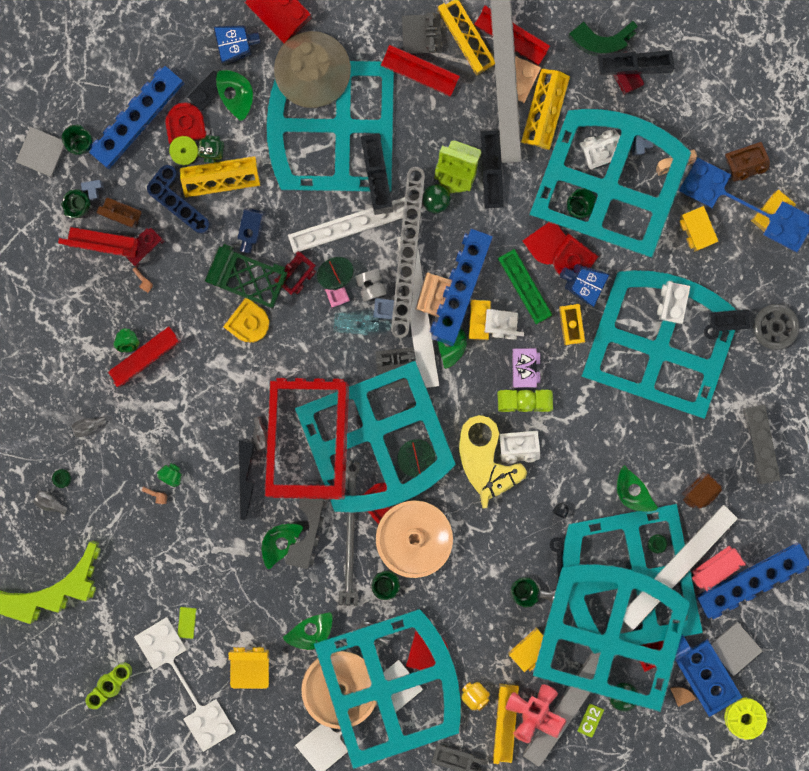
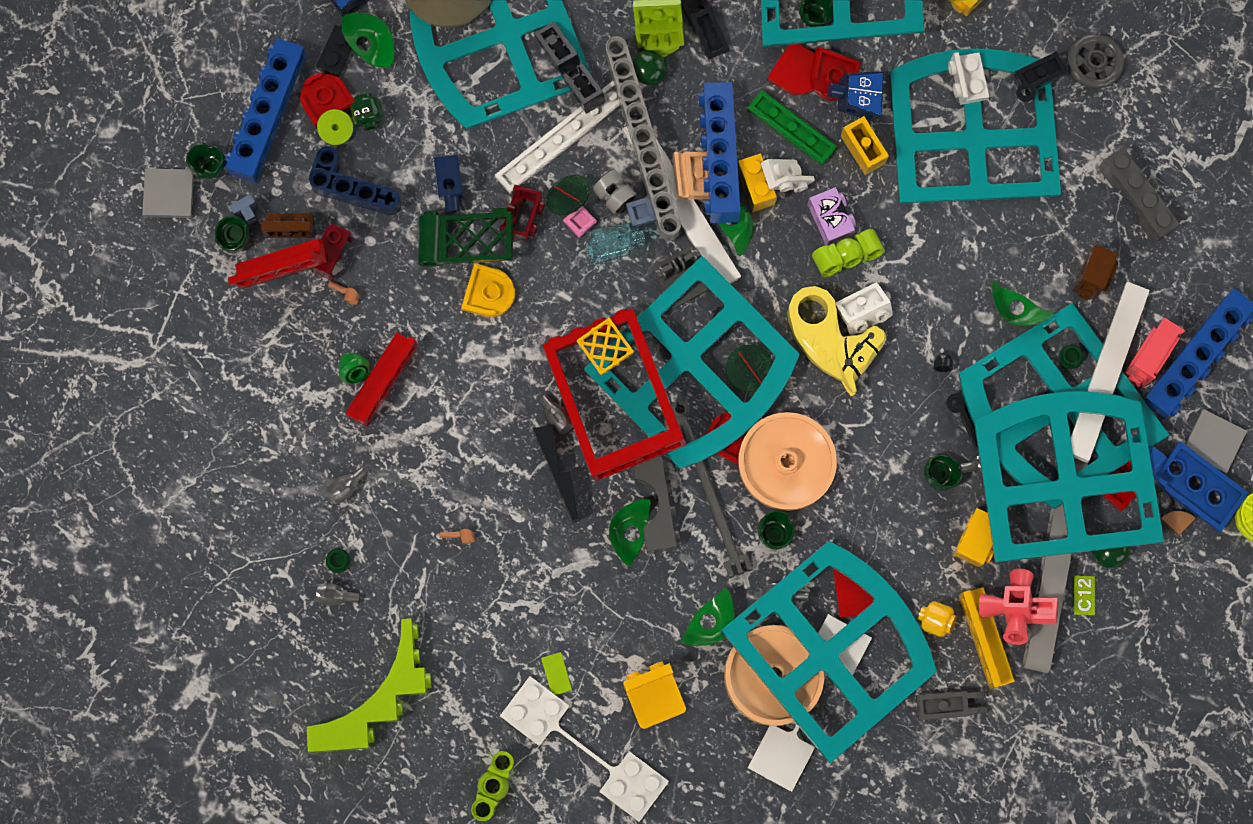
camera: 30 degrees left, 10 degrees down
(170, 475) = (467, 503): green cone -> none
(219, 173) = (386, 132): yellow fence -> none
(327, 400) = (594, 331): none -> yellow window

